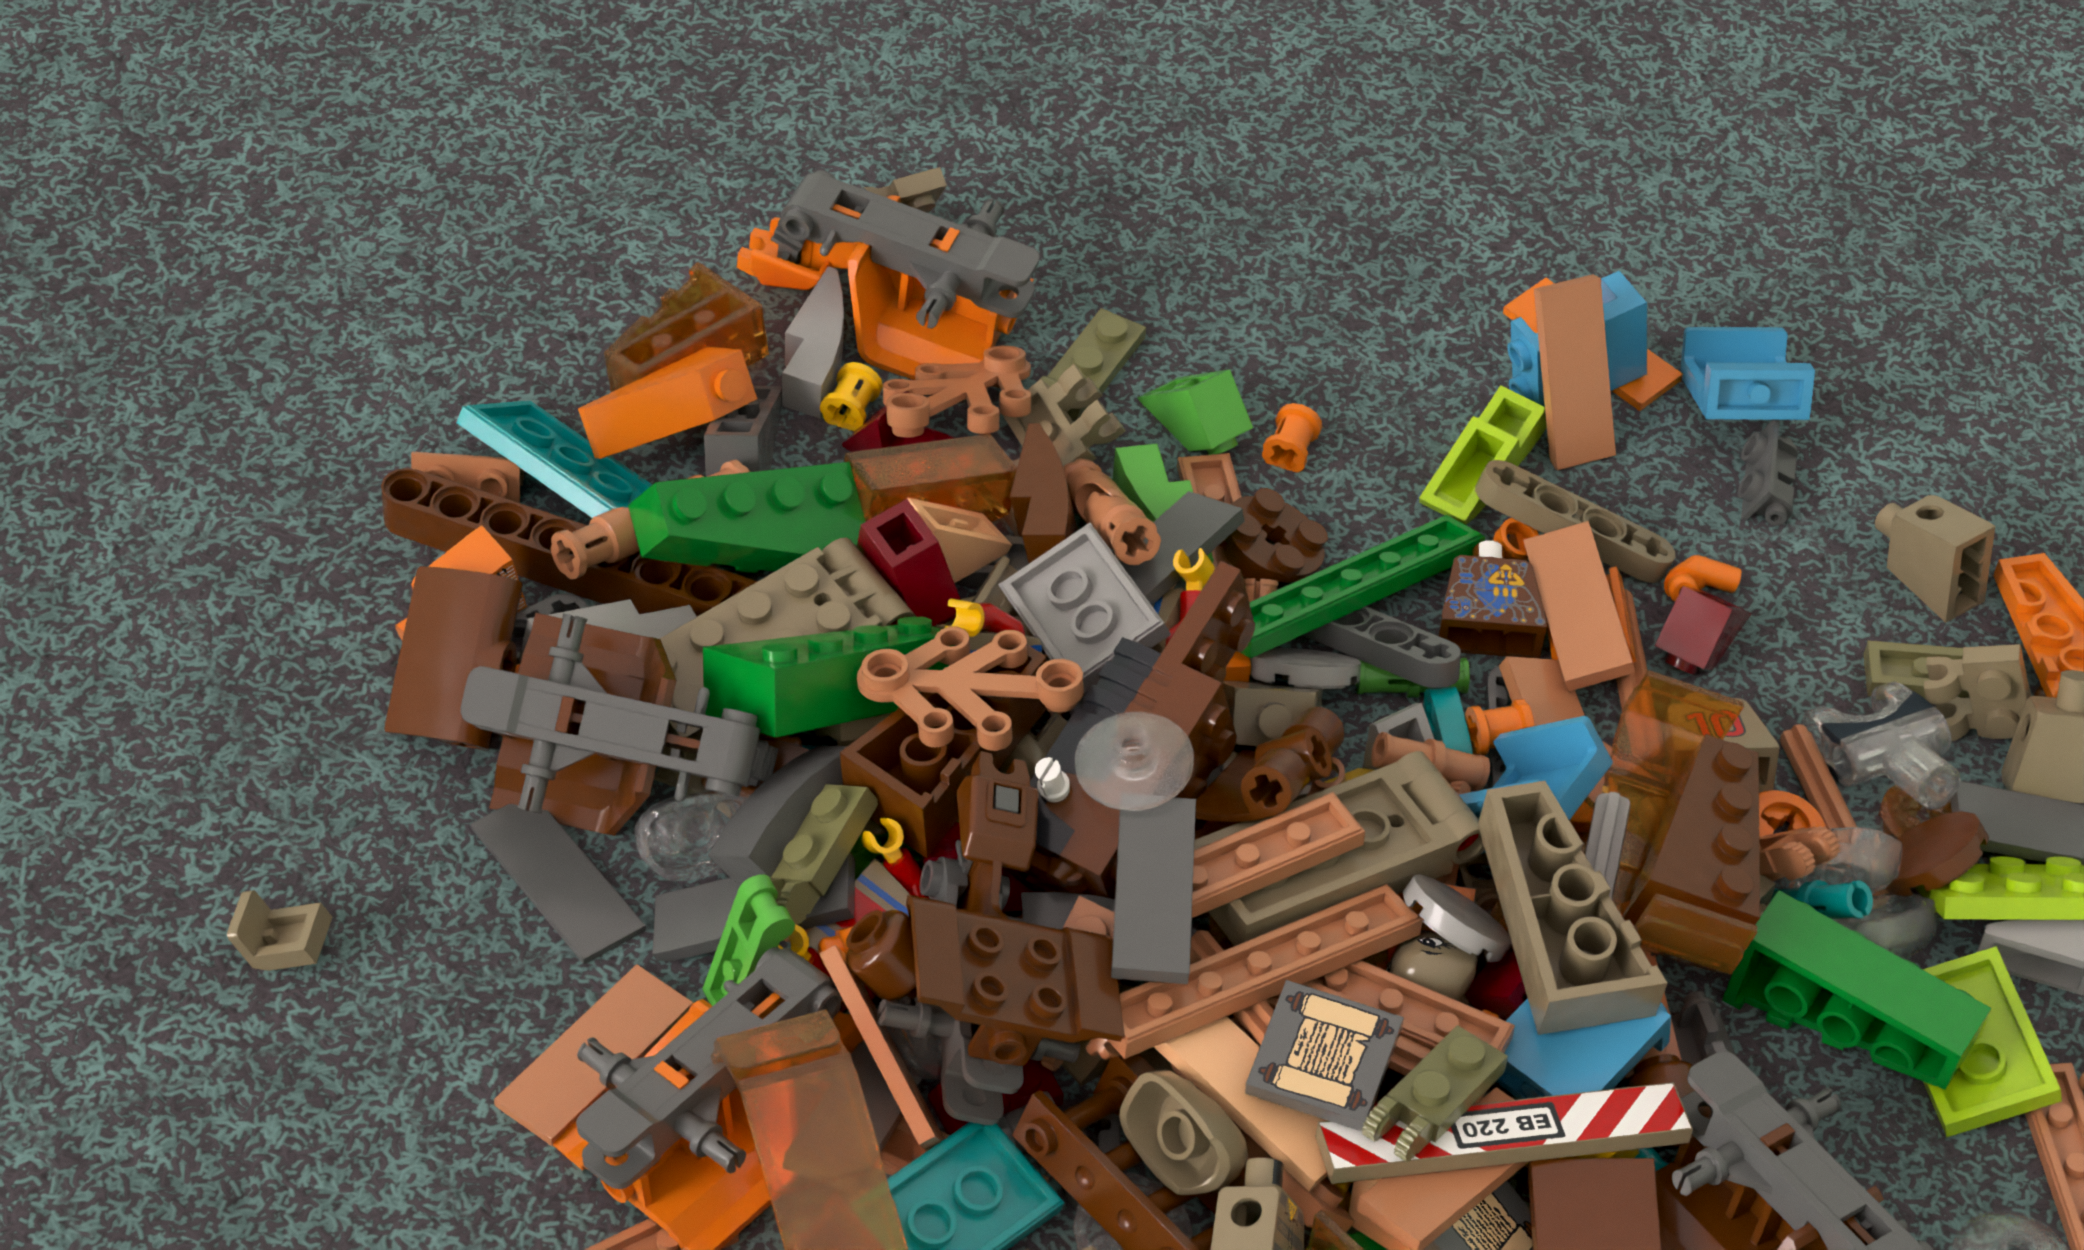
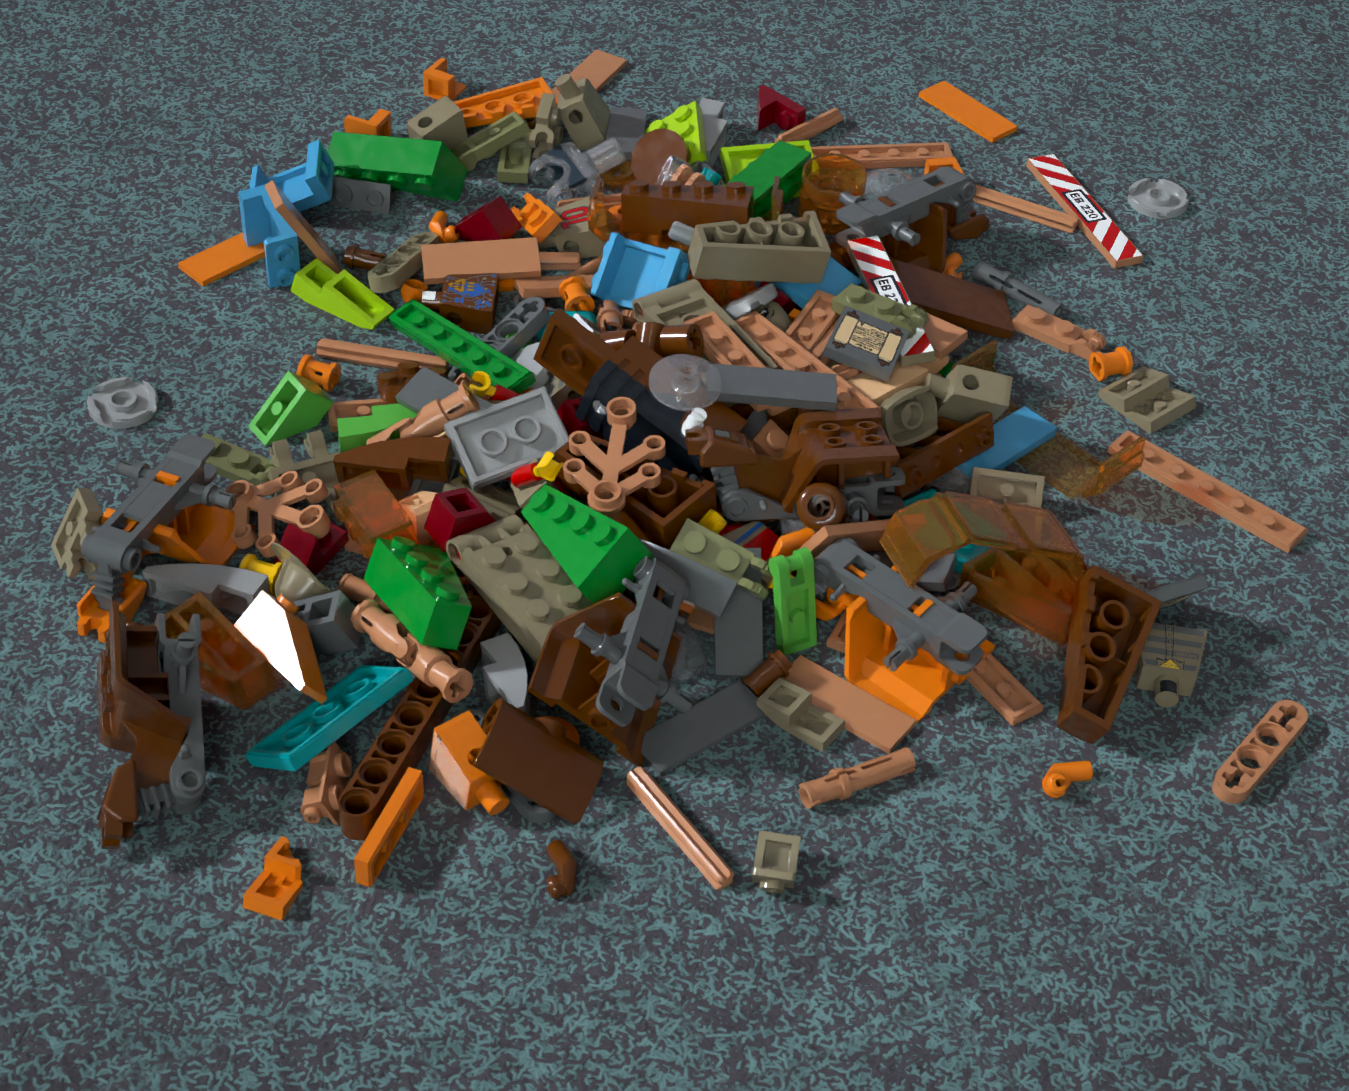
camera: 90 degrees left, 5 degrees down
(294, 712) = (566, 867): none -> reddish brown arm
(316, 444) = (277, 884): none -> orange slope
(365, 839) = (680, 828): none -> nougat axle
(375, 529) = (389, 827): none -> orange tile
(427, 1030) = (843, 782): none -> nougat pin
(565, 262) = (155, 712): none -> reddish brown piece
(570, 987) = (793, 711): none -> dark tan slope
(649, 952) = (767, 672): none -> reddish brown pin
(816, 419) = (295, 578): none -> dark tan piece
(1211, 258) = (133, 403): none -> light grey tile
(1351, 499) = (375, 355): none -> nougat axle
(1595, 475) = (362, 258): none -> reddish brown pin
(1734, 677) = (536, 217): none -> orange hinge
(1828, 505) = (404, 163): none -> green wedge
(1893, 1115) = (823, 182): none -> clear orange wheel
(1936, 617) = (491, 139): none -> olive hinge
(1958, 481) = (378, 124): none -> orange panel

